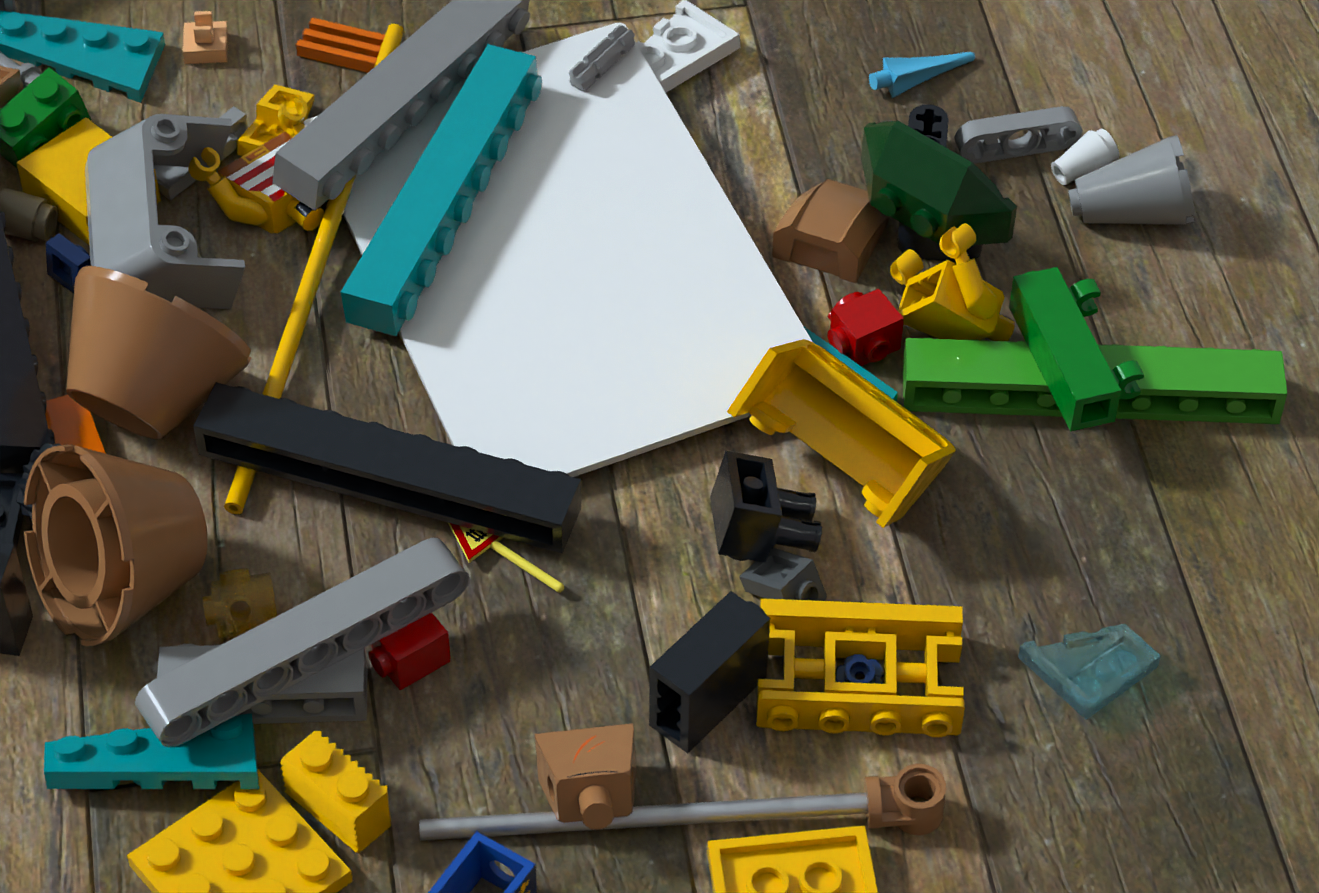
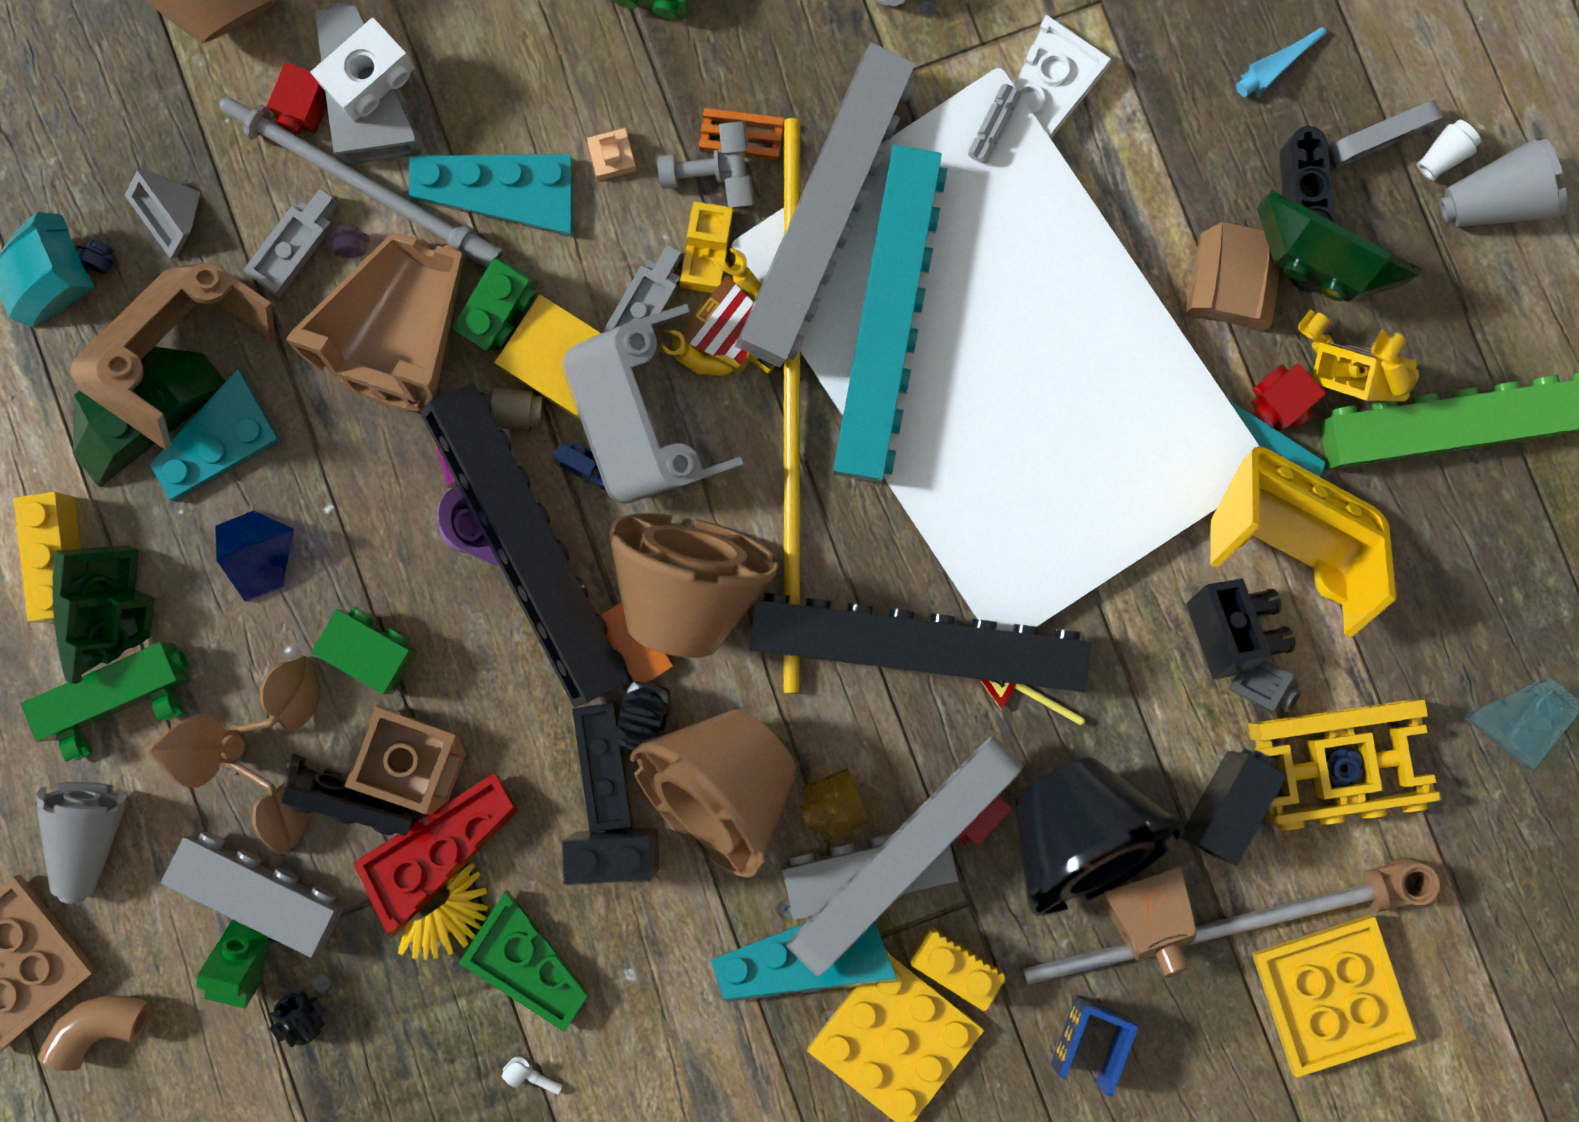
camera: 10 degrees left, 35 degrees up
(317, 57) = (726, 165): none -> light grey bar
(560, 685) = (1086, 834): none -> black cone
(1067, 351) = (1480, 415): green brick -> none

